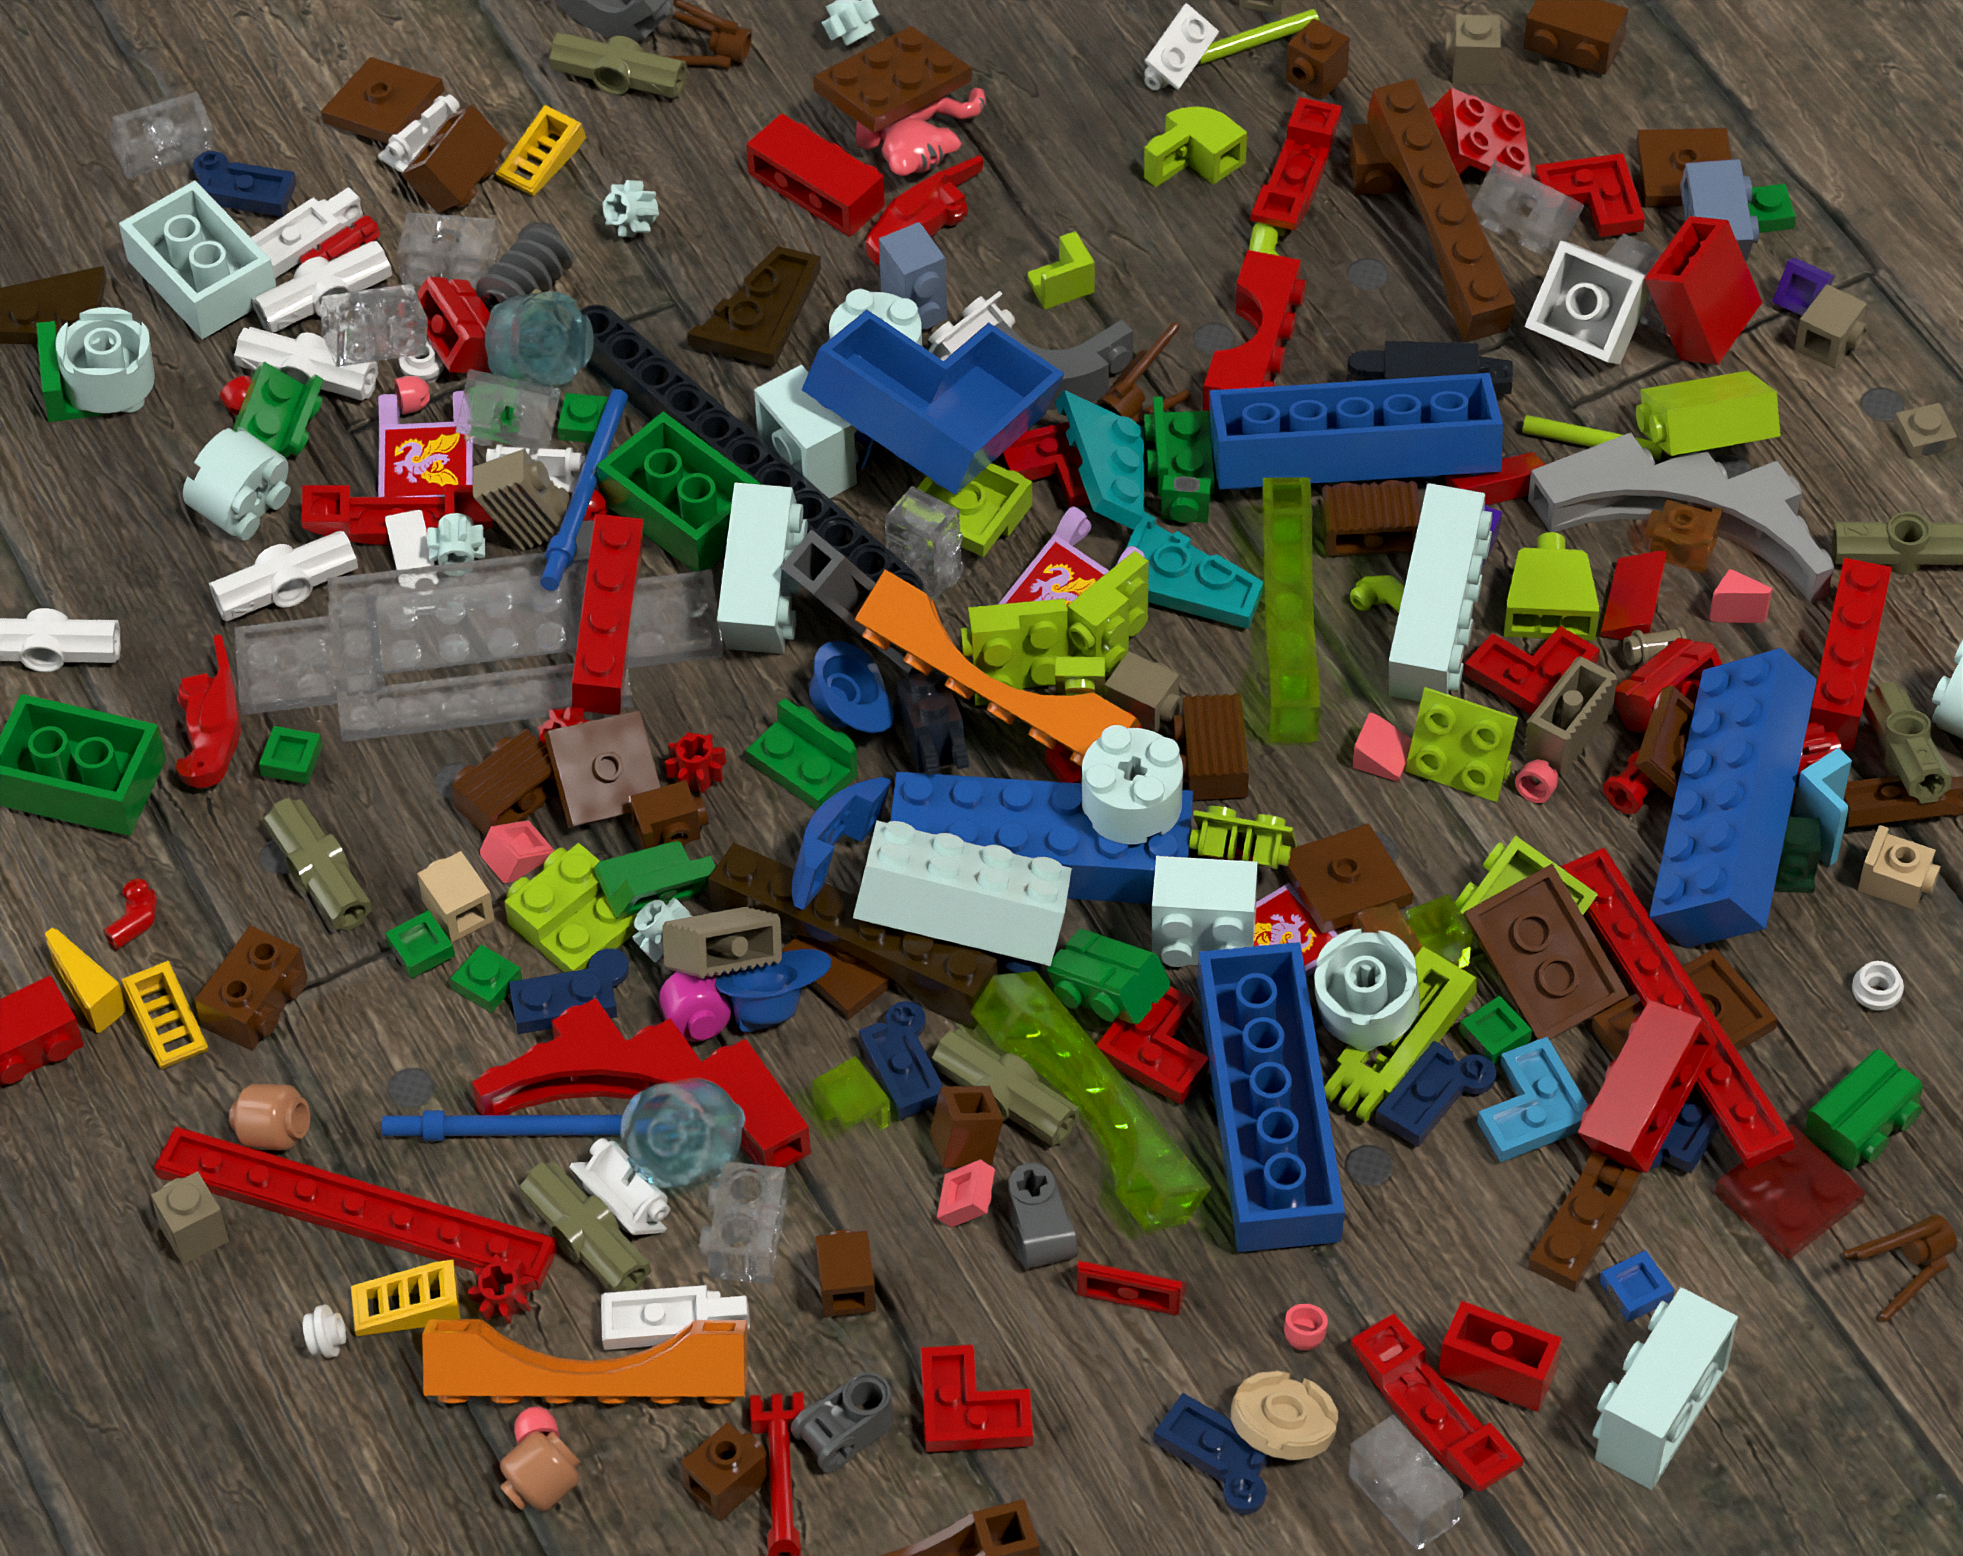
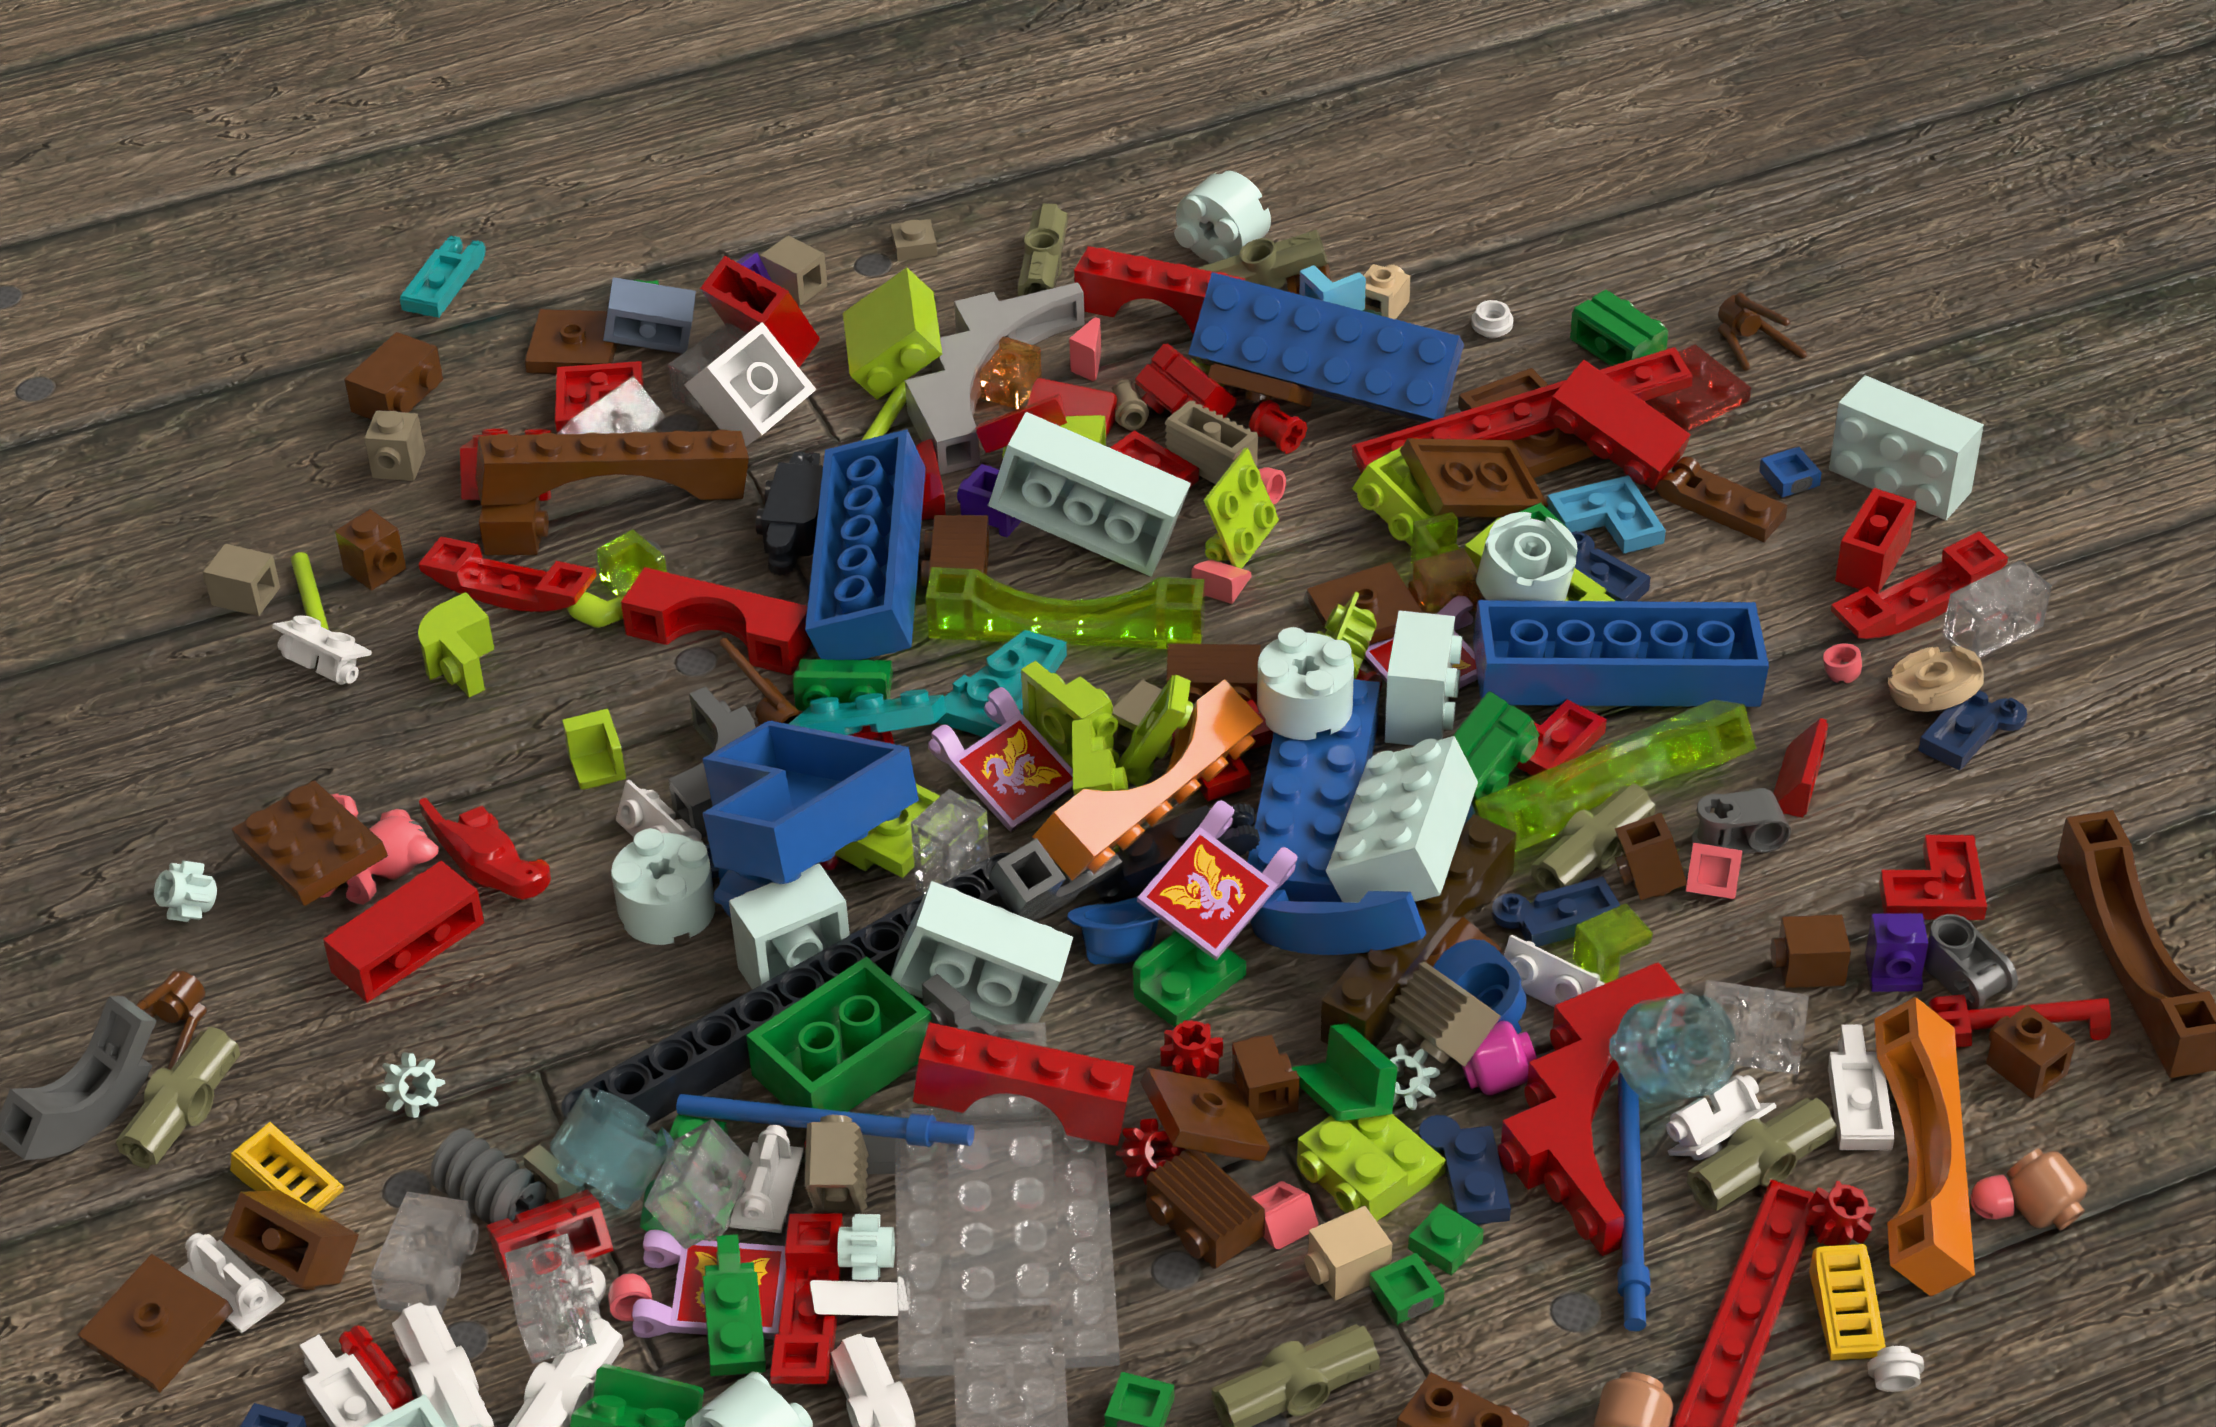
camera: 85 degrees left, 10 degrees down
(391, 461) = (733, 1313): none -> green hinge
(700, 571) = (951, 1007): none -> dark grey plate
(763, 311) = (581, 984): dark brown wing -> none
(827, 1038) = (1547, 975): none -> white hinge
(853, 1348) = (1896, 952): none -> dark purple brick
(858, 736) = (1210, 889): none -> flag
(915, 271) = (591, 837): sand blue brick -> none
(1186, 499) = (912, 671): green plate -> none
(1328, 262) = (624, 560): none -> clear neon green panel
(1377, 591) = (1040, 559): lime arm -> none
(1567, 534) = (998, 431): none -> red slope
(1771, 43) = (442, 277): none -> teal hinge

